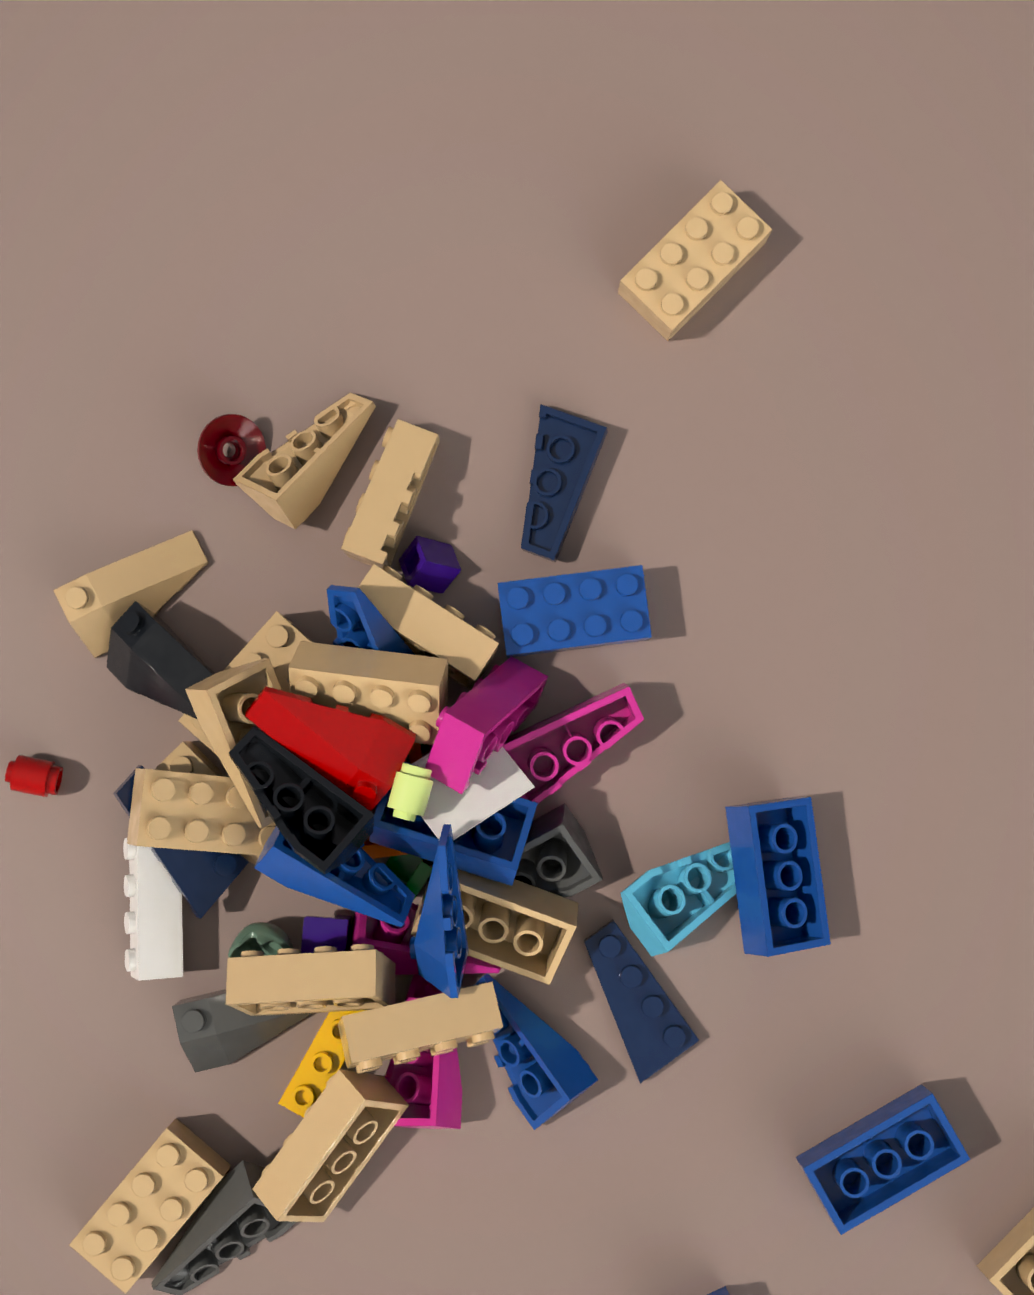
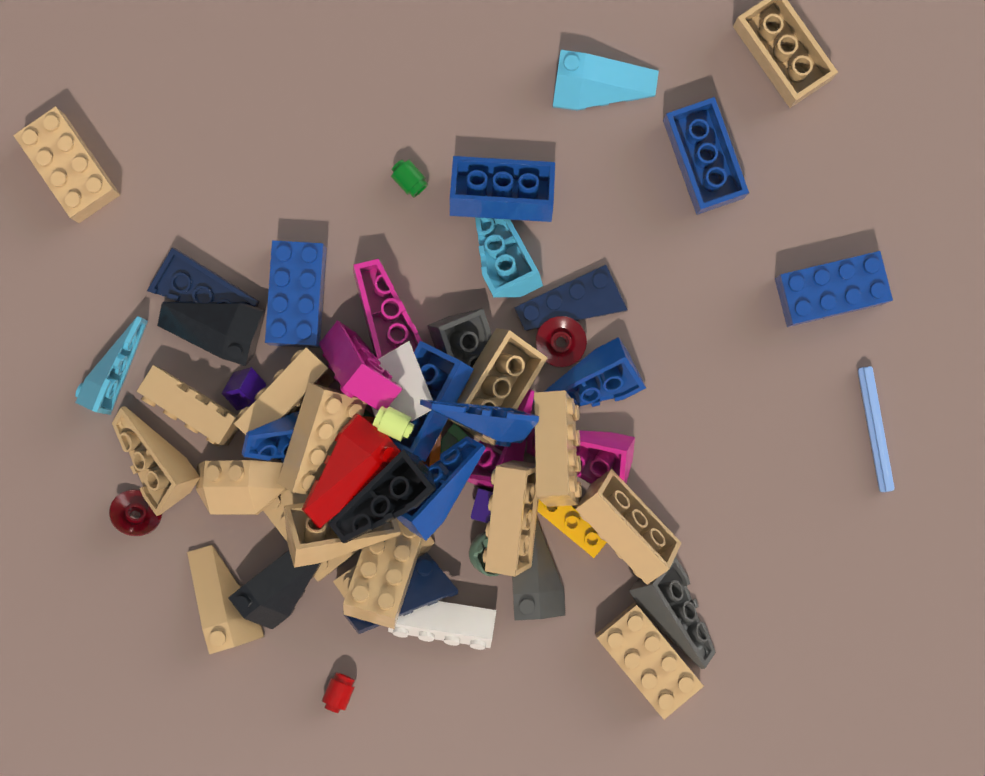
camera: 75 degrees left, 0 degrees up
(290, 586) = (238, 486): none -> tan wedge
(402, 372) = (106, 379): none -> medium azure wedge
(505, 514) = (221, 329): none -> black wedge
(582, 1015) = (574, 338): none -> dark red dish
(768, 737) = (409, 178): none -> green brick
(960, 980) = (594, 81): none -> medium azure wedge

